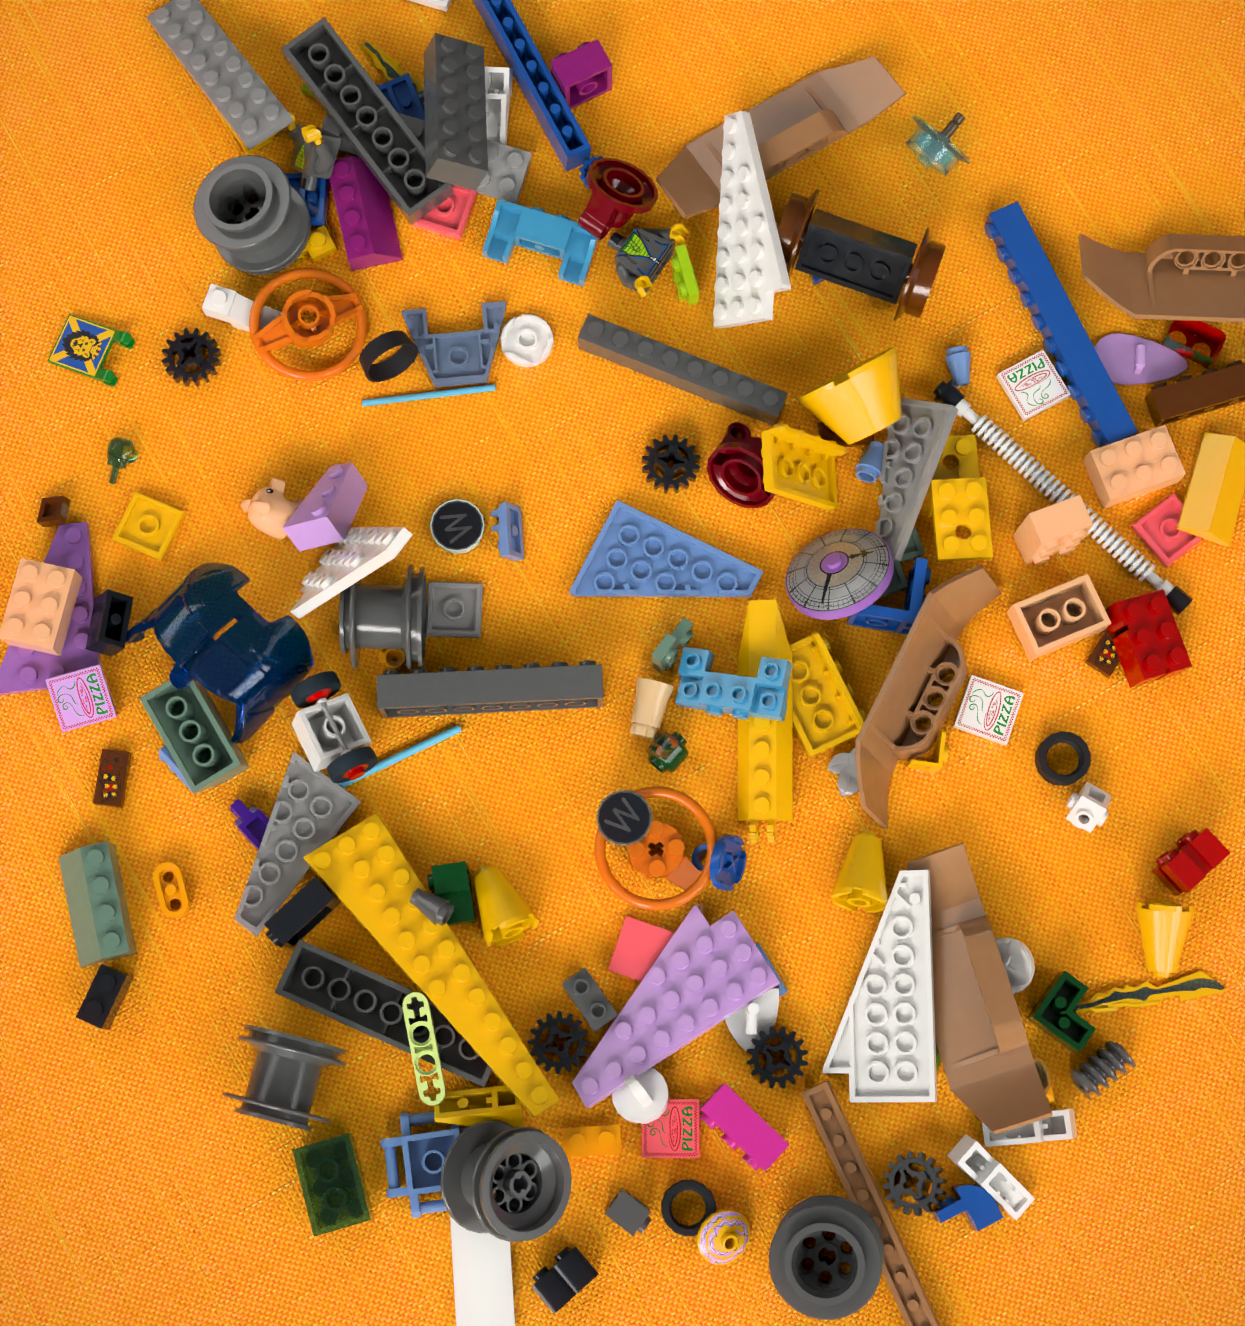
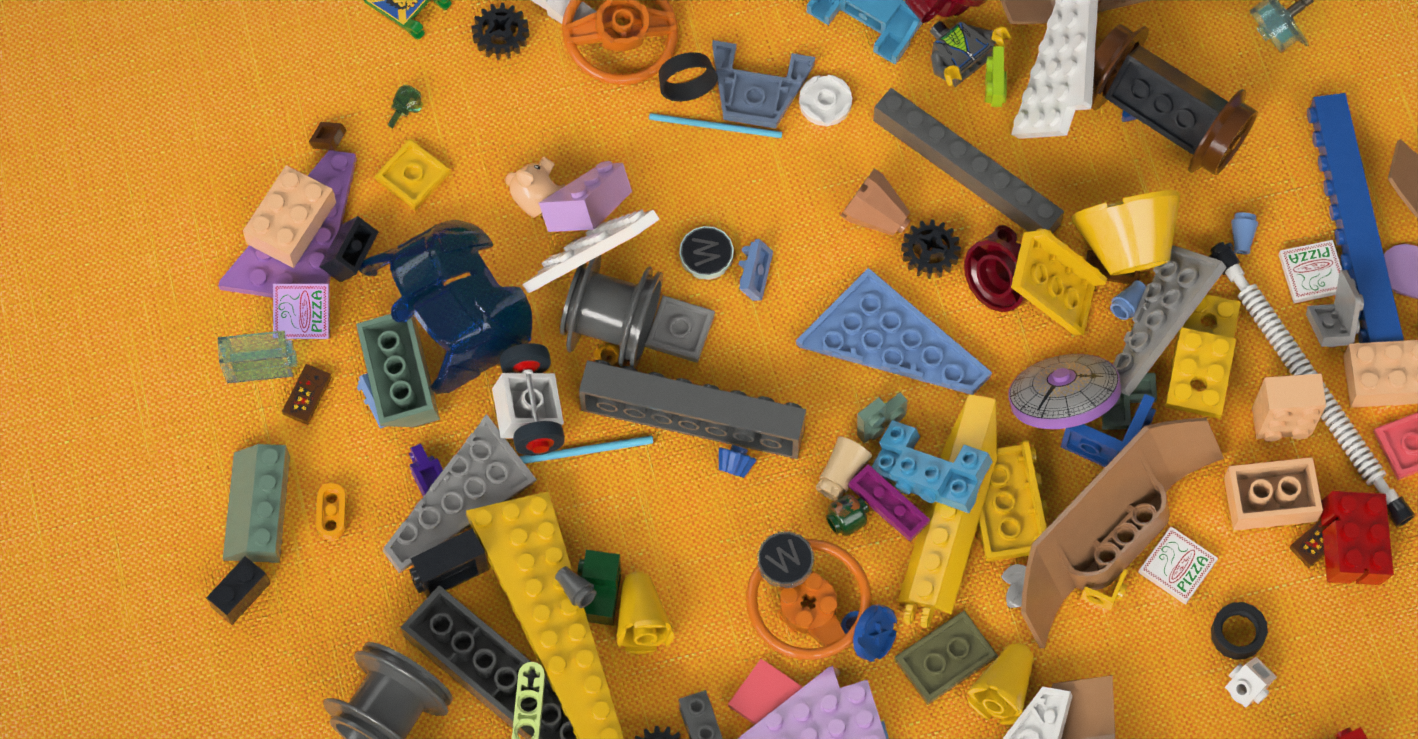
camera: 20 degrees right, 10 degrees down
(50, 758) = (256, 356): none -> clear light blue window
(546, 728) = (735, 461): none -> blue piece
(607, 436) = (877, 206): none -> nougat cone
(704, 729) = (889, 503): none -> magenta plate
(798, 863) = (945, 657): none -> olive tile
(1074, 429) = (1338, 322): none -> light grey bracket

